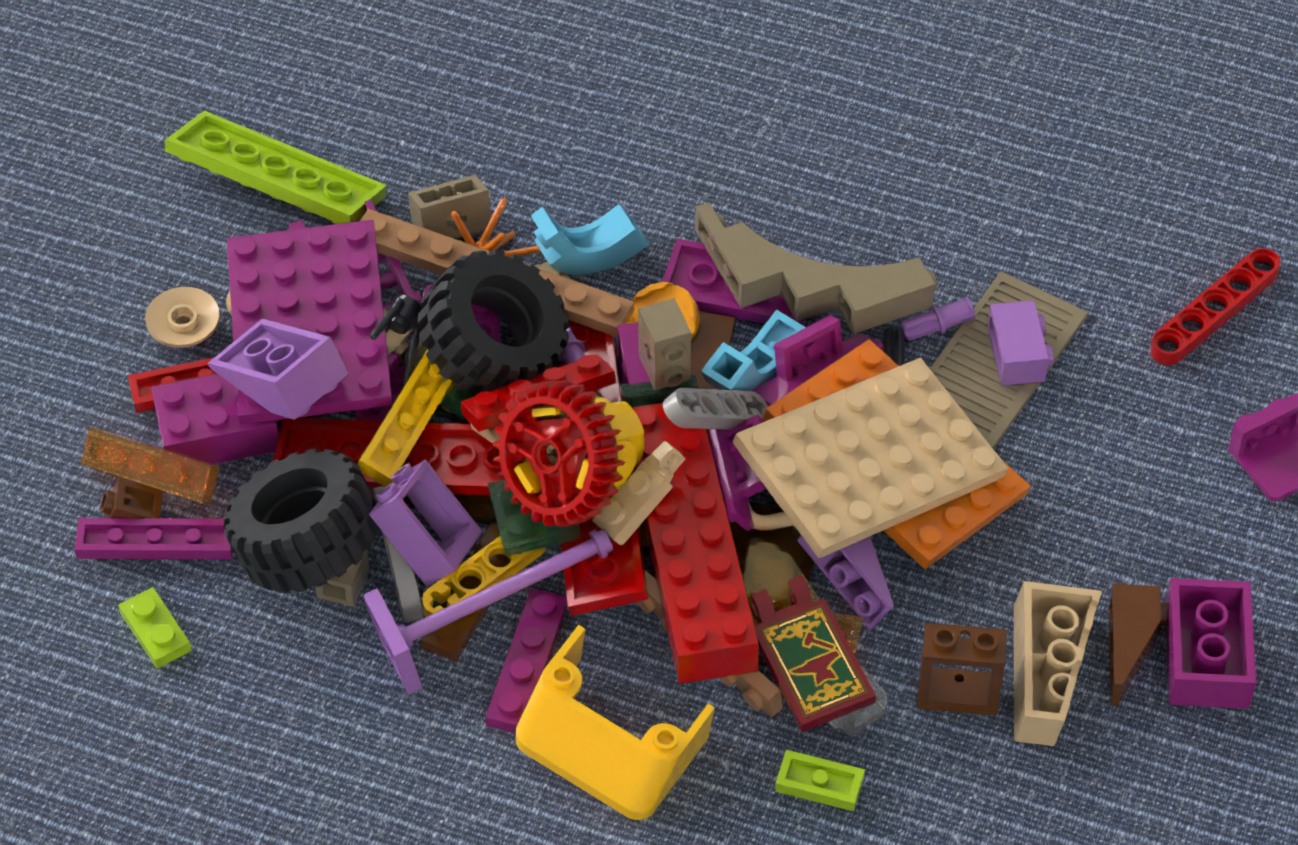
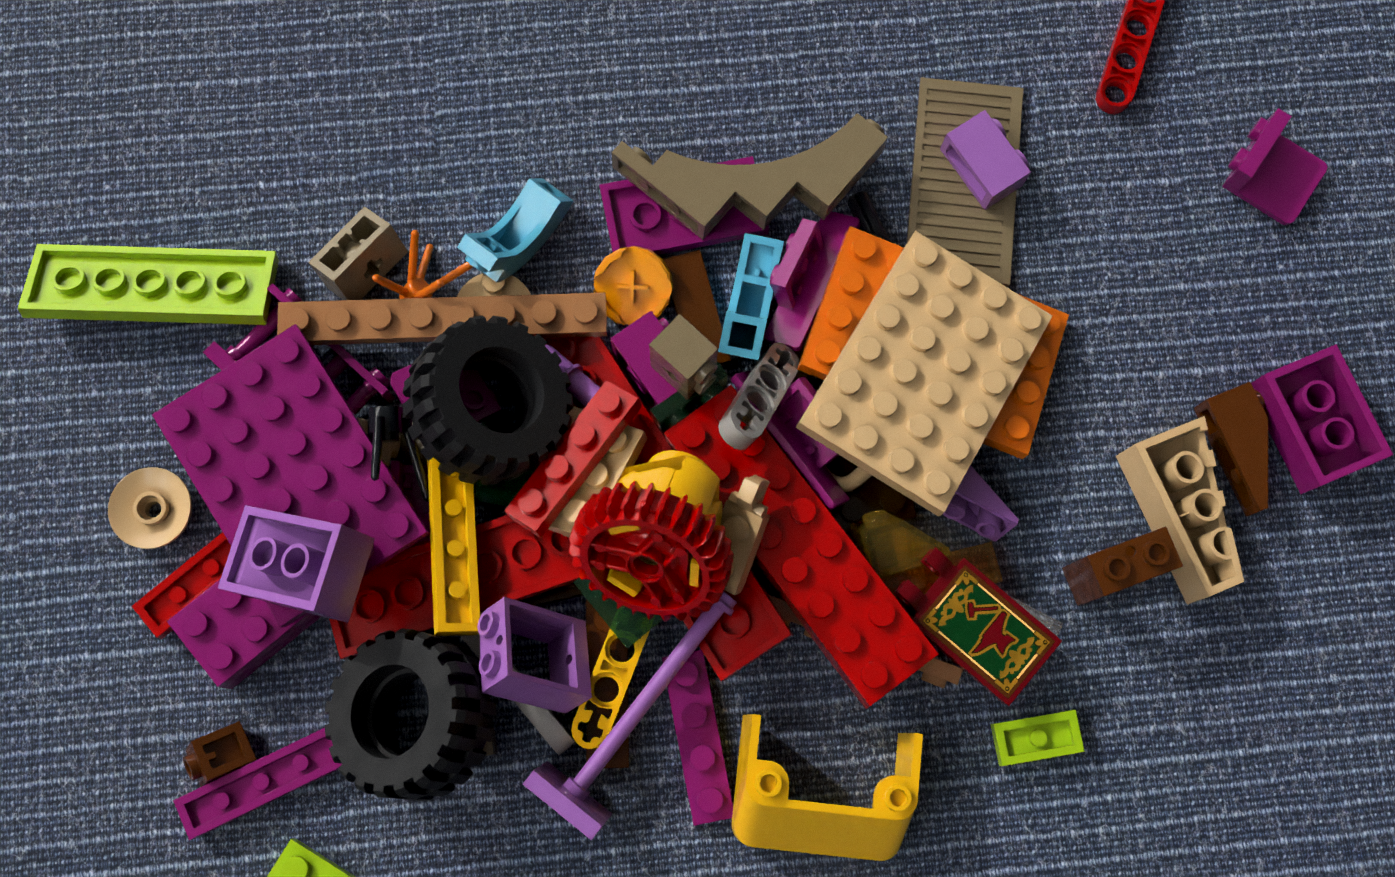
camera: 30 degrees left, 25 degrees up
(150, 465) = (214, 709): clear orange plate -> none
(938, 319) = (893, 163): medium lavender axle -> none

